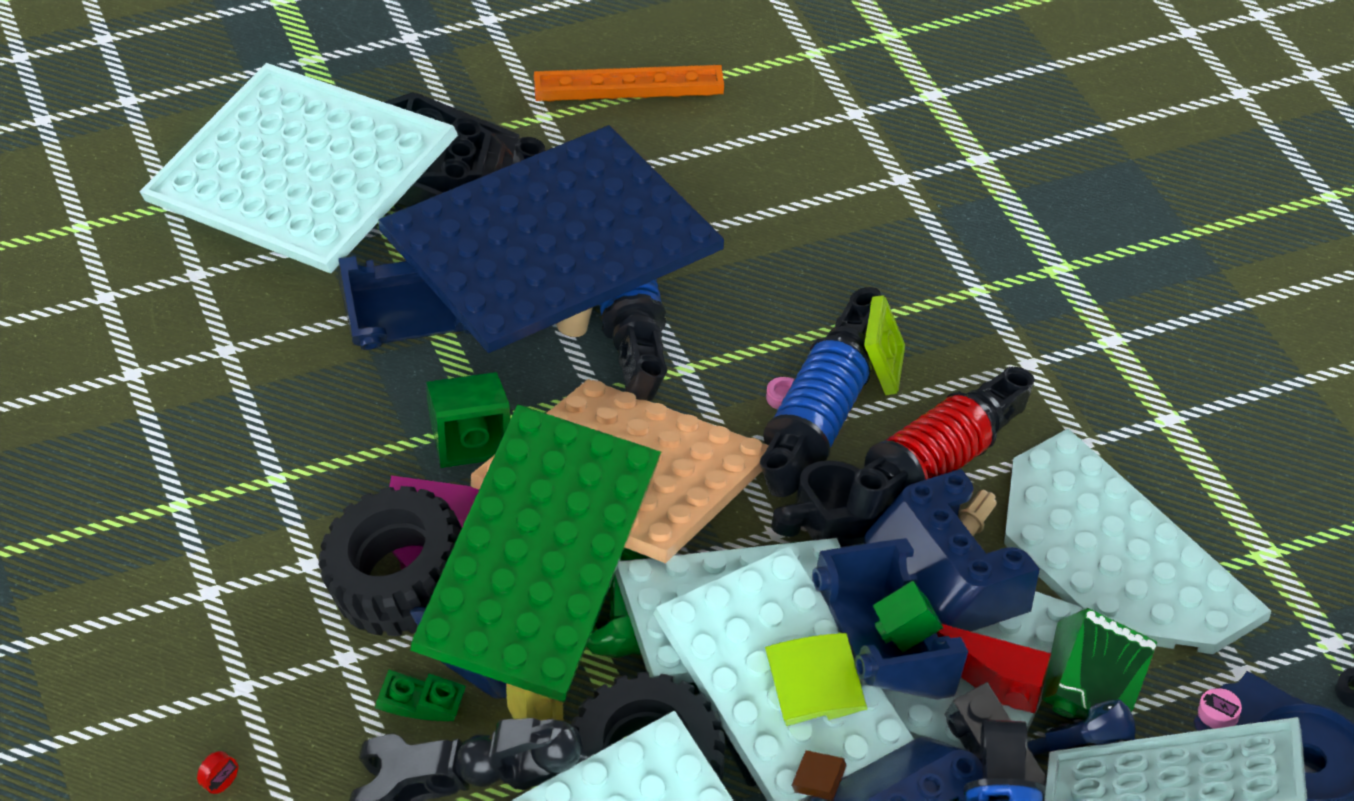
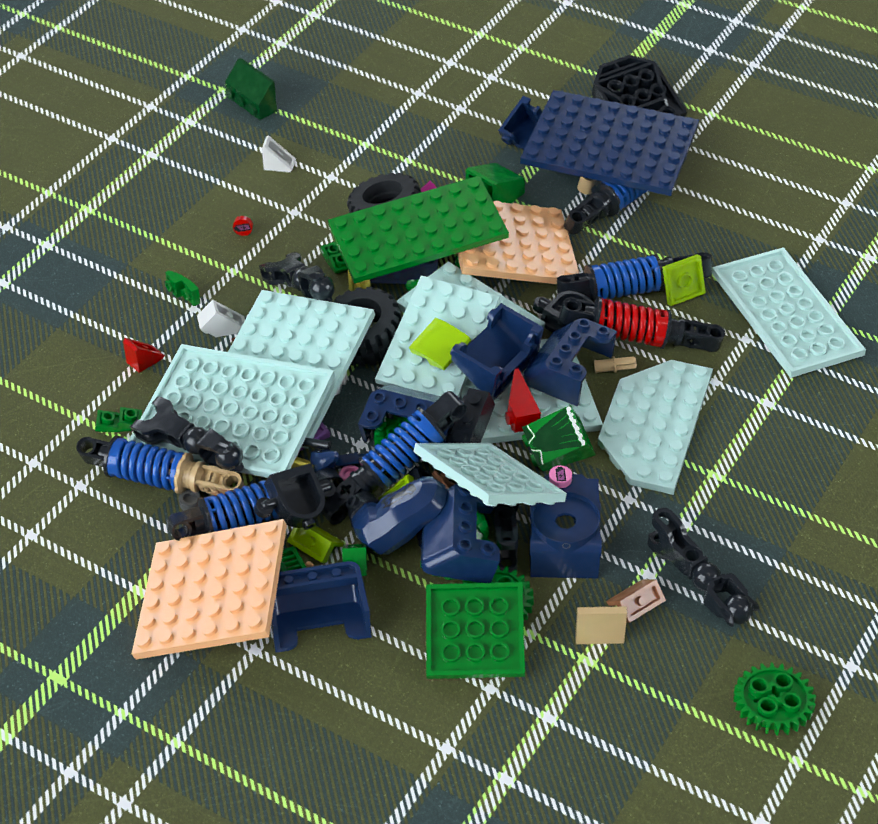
camera: 55 degrees right, 0 degrees up
(96, 630) = (276, 157): none -> white slope
(299, 166) = (568, 57): light aqua plate -> none
(628, 83) = (764, 123): orange plate -> none
(819, 775) = (396, 375): reddish brown tile -> none
(906, 617) = (504, 353): green brick -> none
(1022, 291) = (788, 312): none -> light aqua plate
(1105, 724) = (518, 449): dark blue animal -> none

